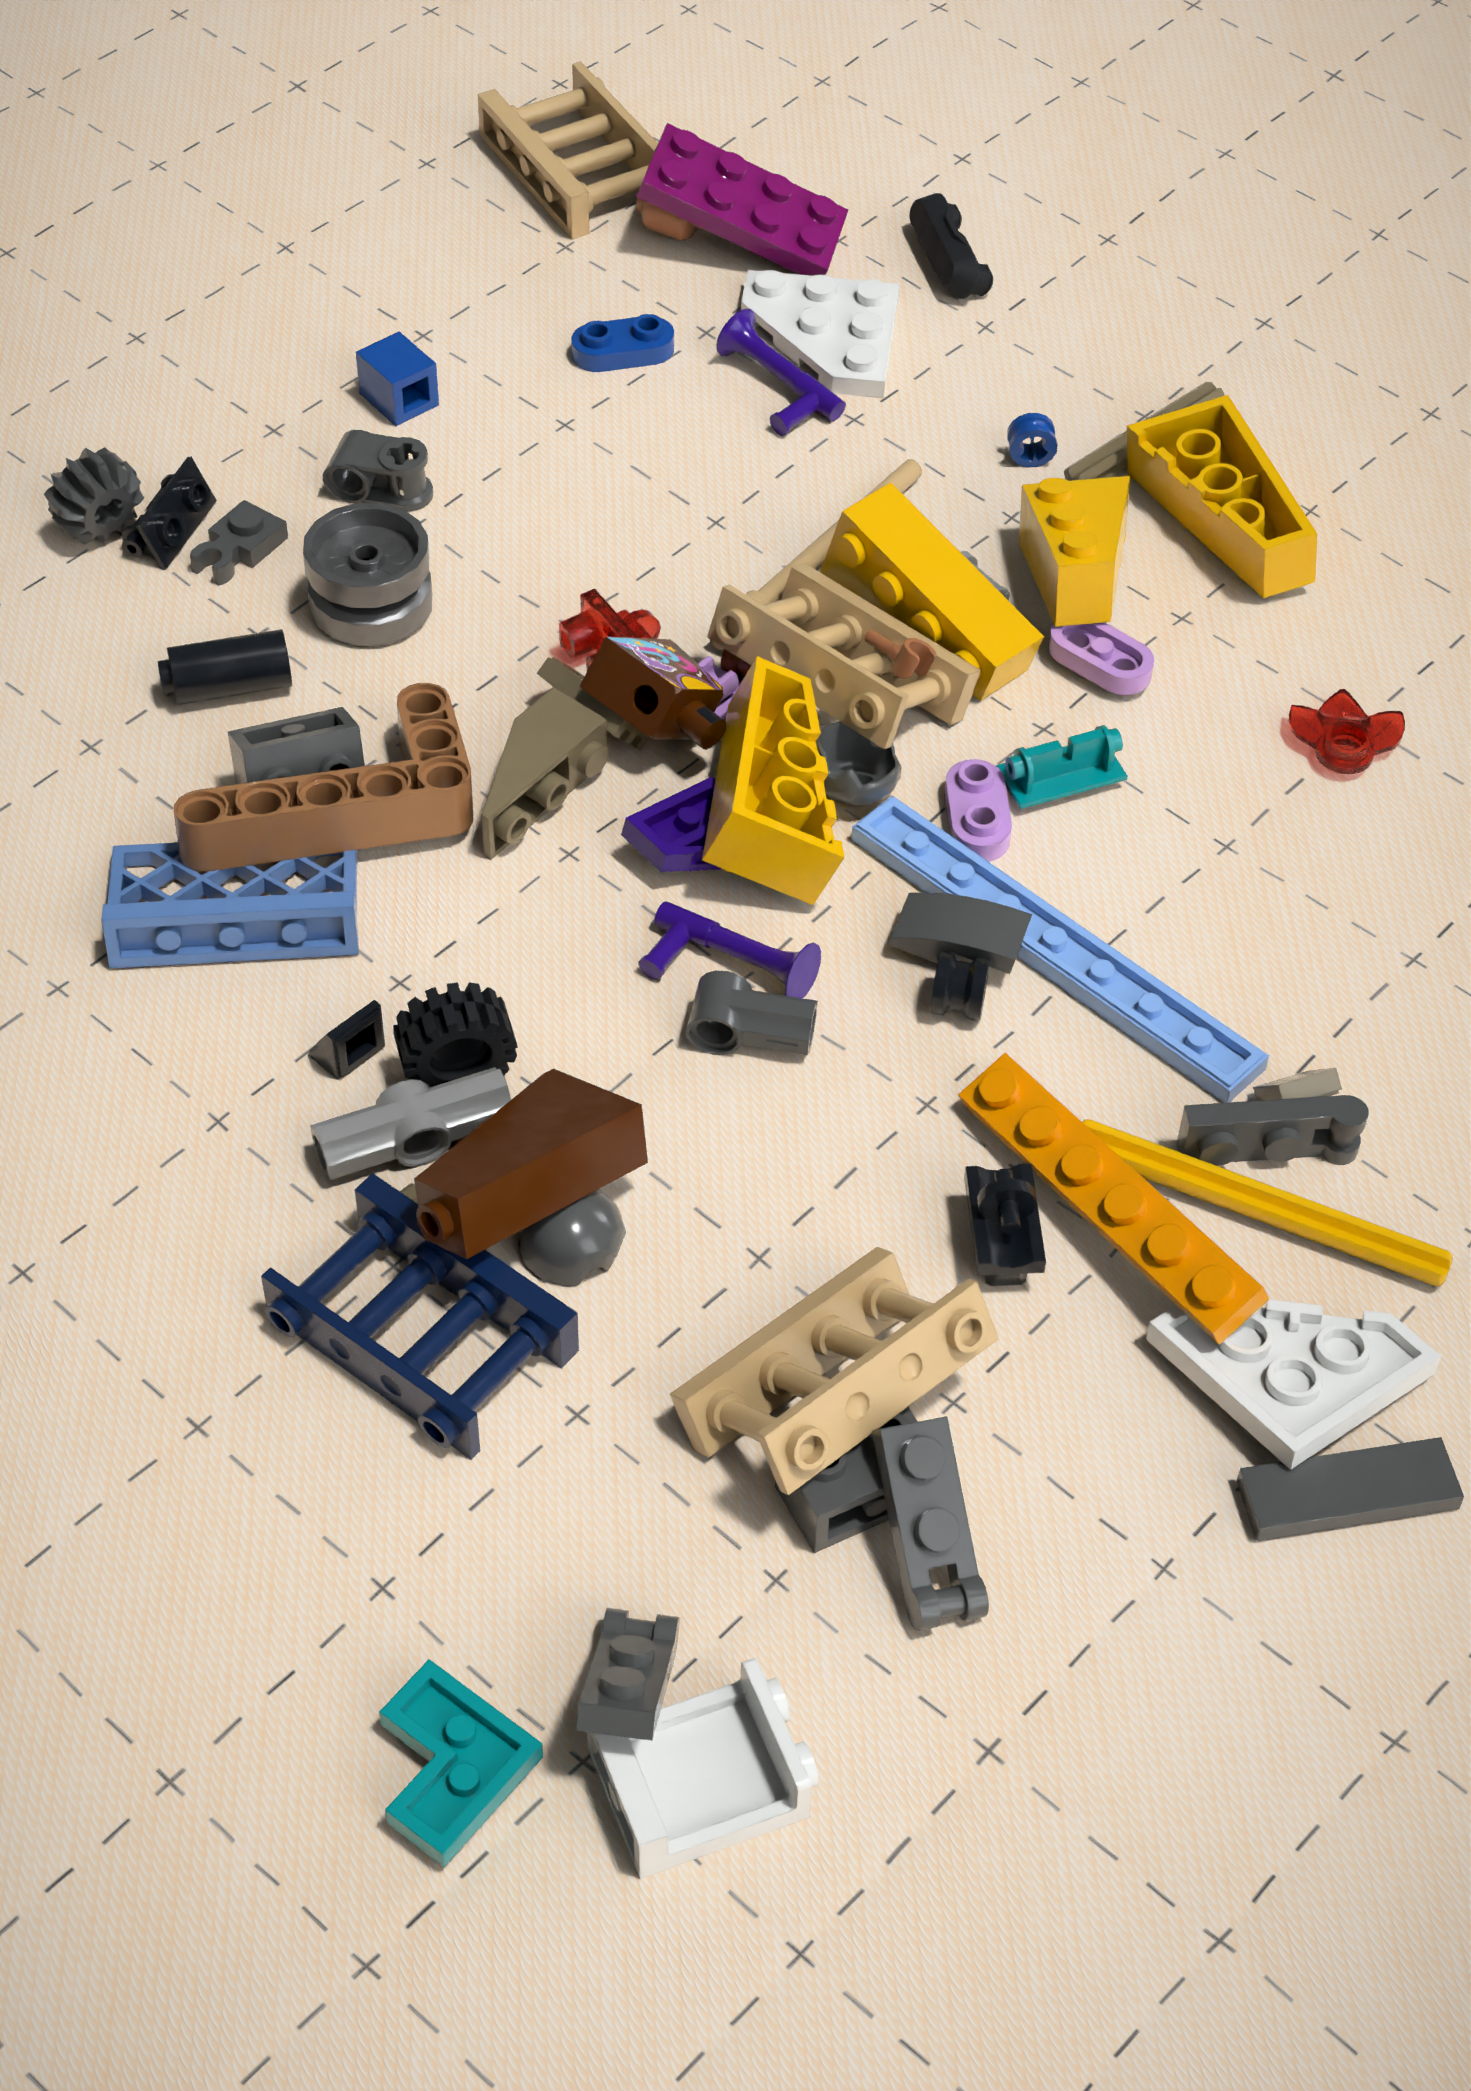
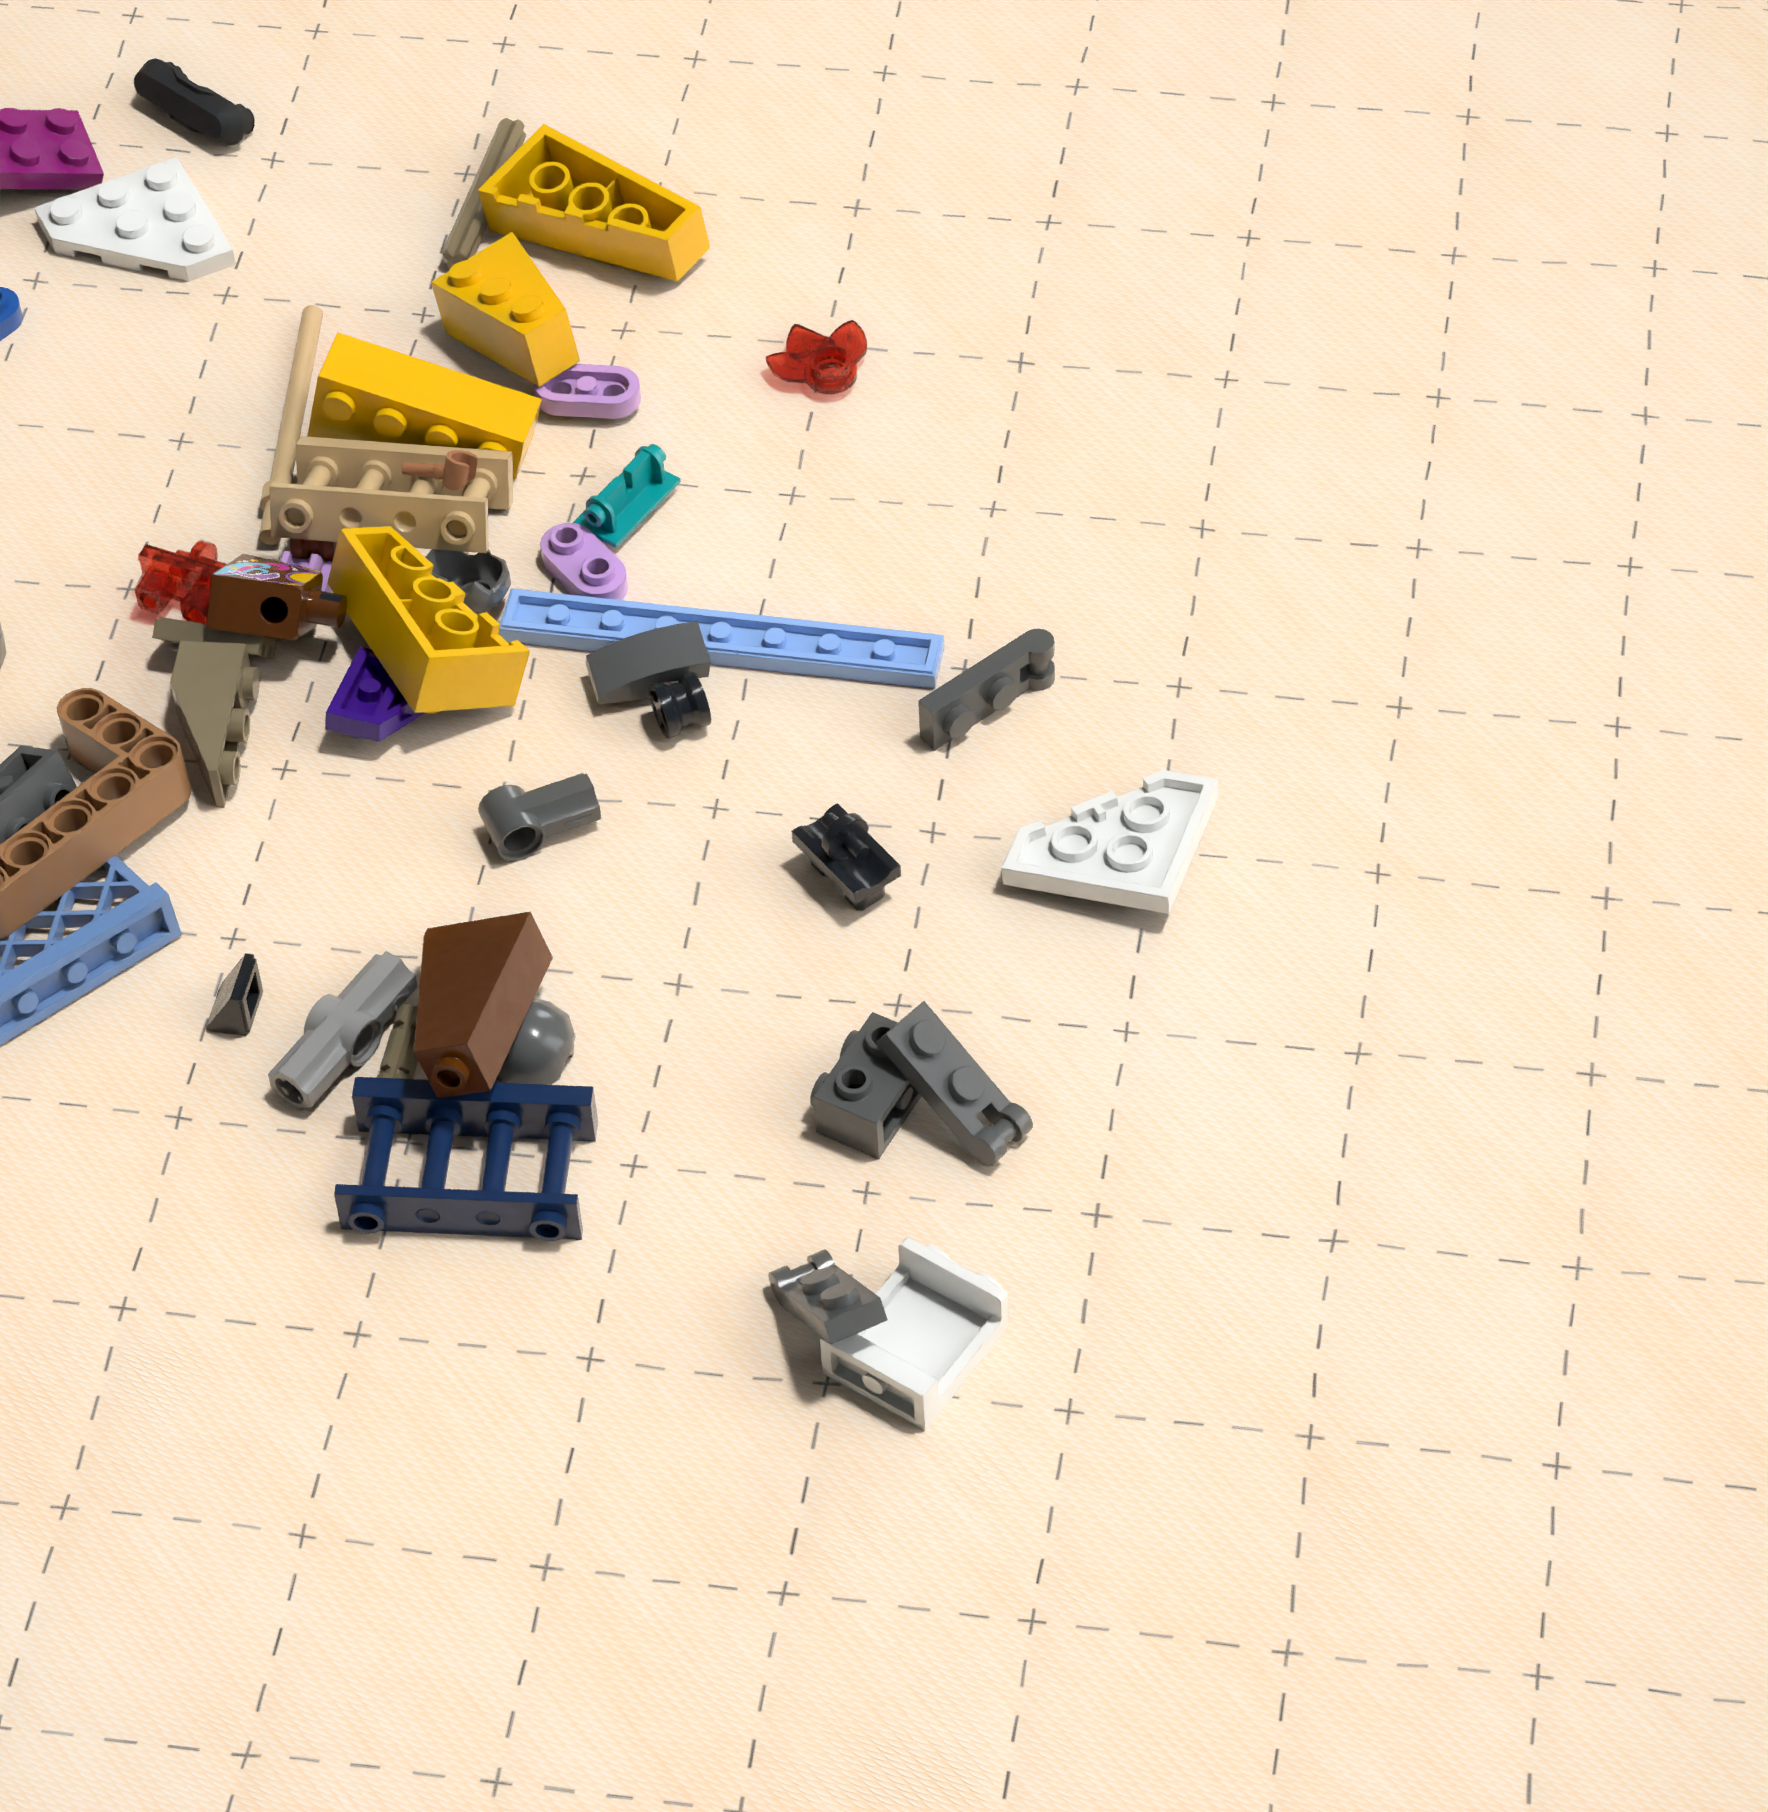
camera: 30 degrees left, 0 degrees up
(454, 1034) = (331, 945): black tyre -> none
(471, 1756) = (751, 1417): teal plate -> none
(741, 337) = (181, 291): dark purple piece -> none
(793, 969) = (428, 773): dark purple piece -> none
(811, 1339) = (772, 1008): tan fence -> none
(1031, 426) = (388, 231): blue bush -> none
(1114, 1199) = (909, 794): light orange plate -> none
(1278, 1207) = (1012, 743): yellow axle -> none
(1302, 1085) = (984, 644): dark tan tile -> none
(1350, 1489) = (1215, 906): dark grey tile -> none

